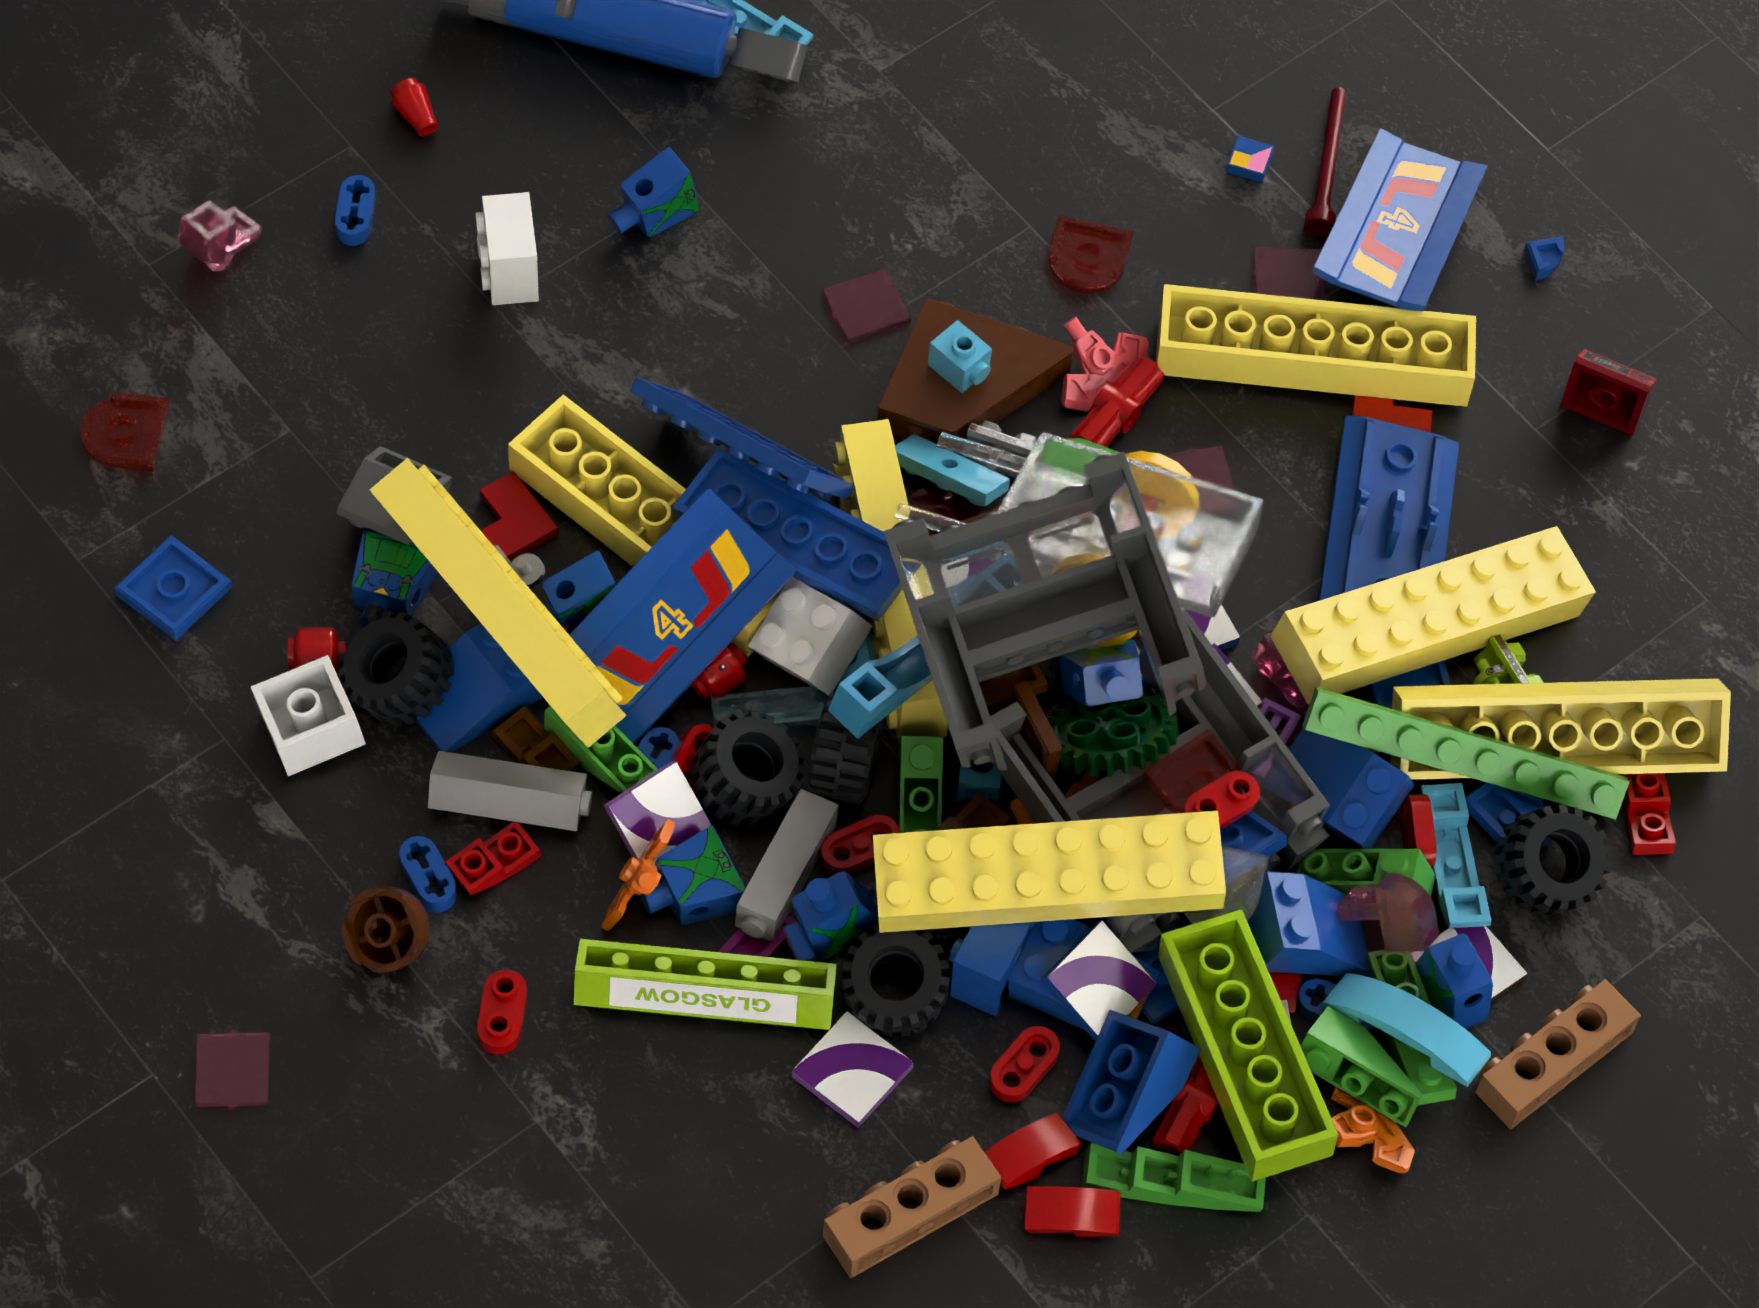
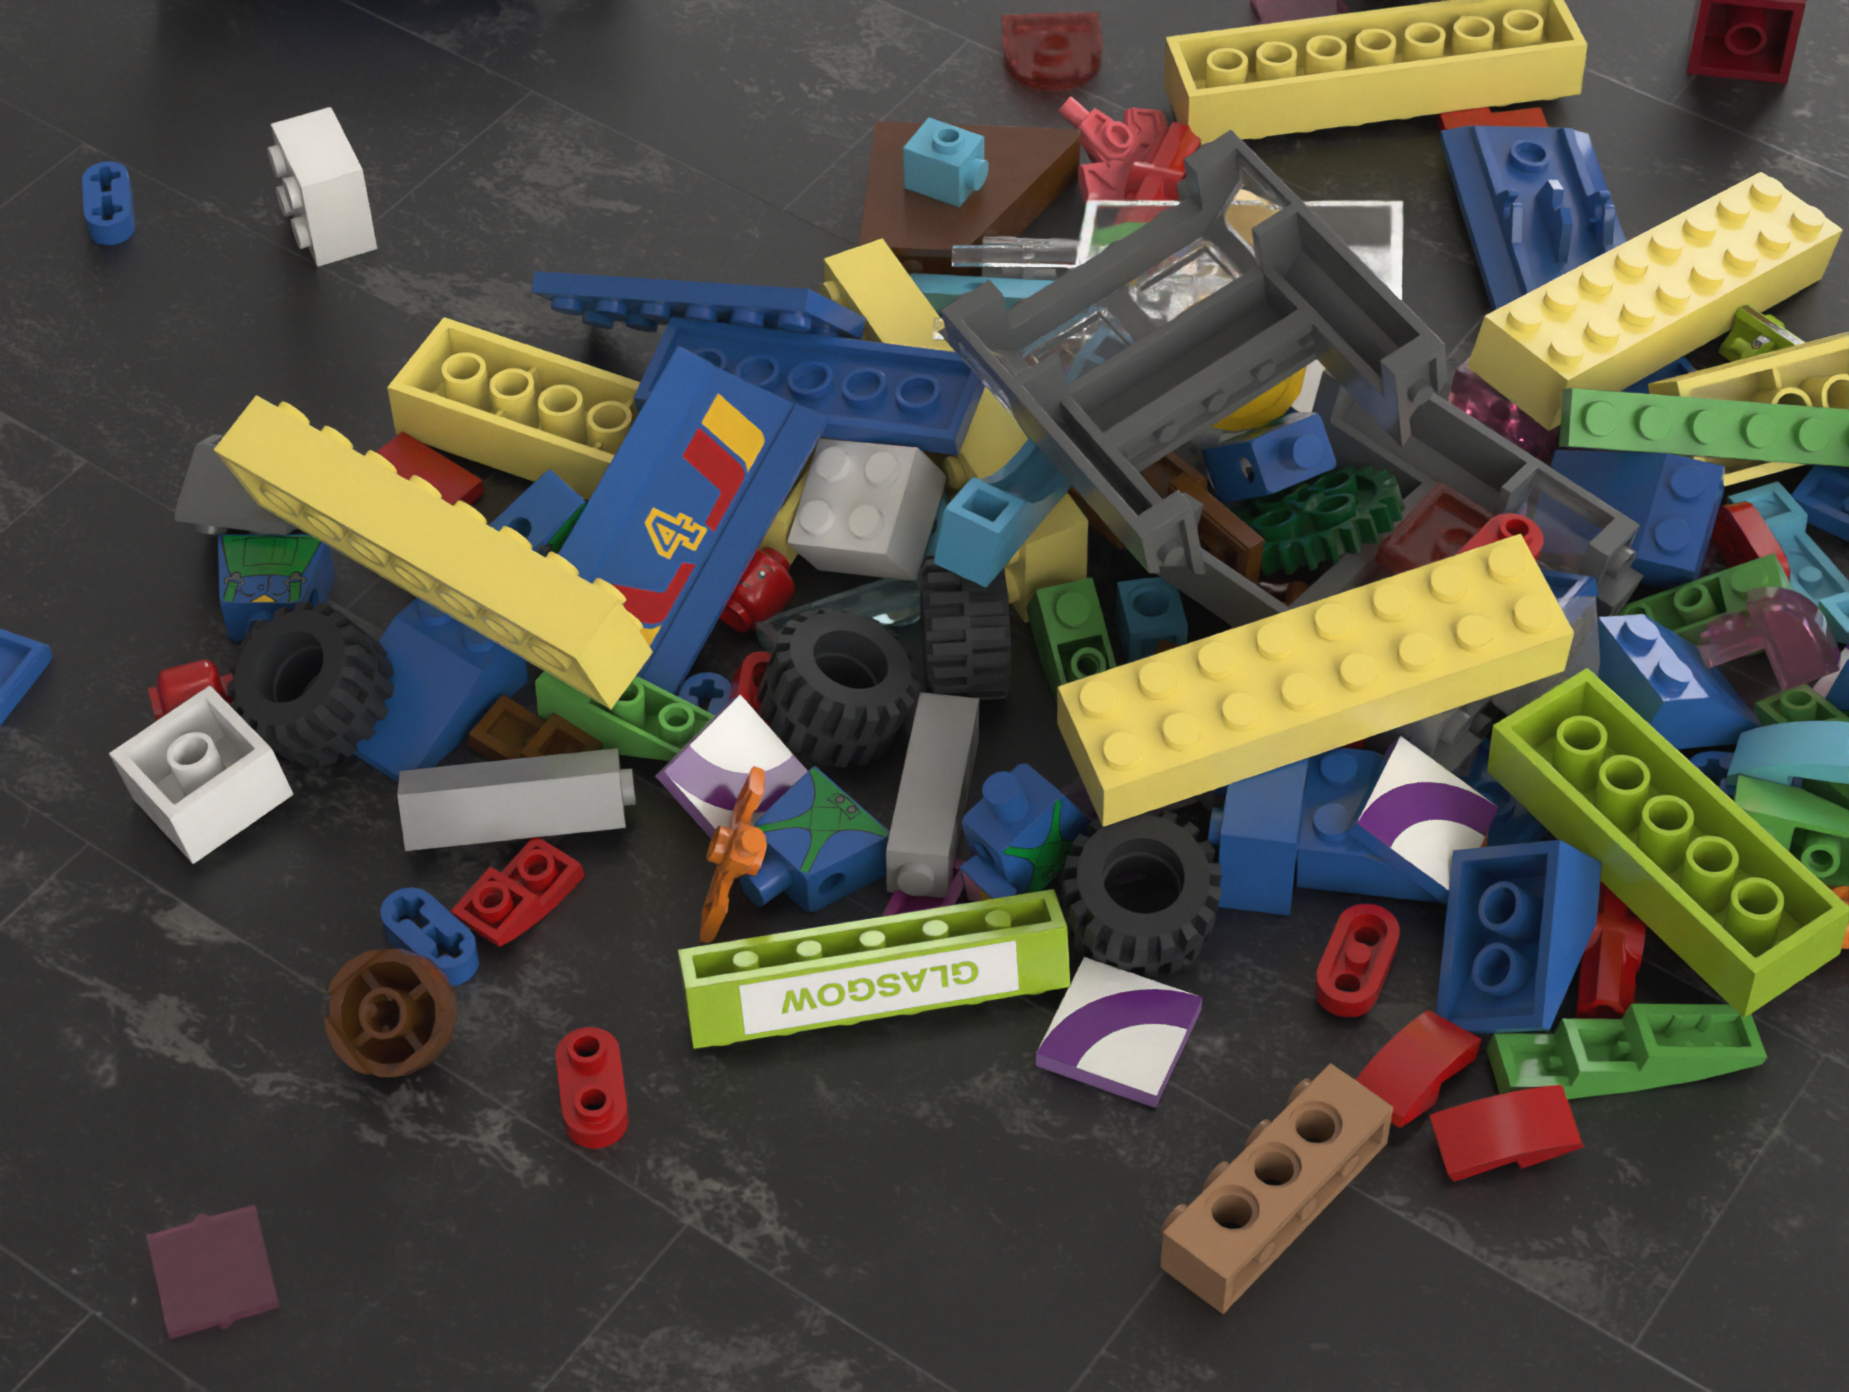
camera: 10 degrees left, 10 degrees down
(414, 105) = (152, 76): red cone -> none
(656, 196) = (496, 94): blue torso -> none
(855, 843) = (1019, 743): red plate -> none
(867, 305) = (799, 160): clear pink piece -> none

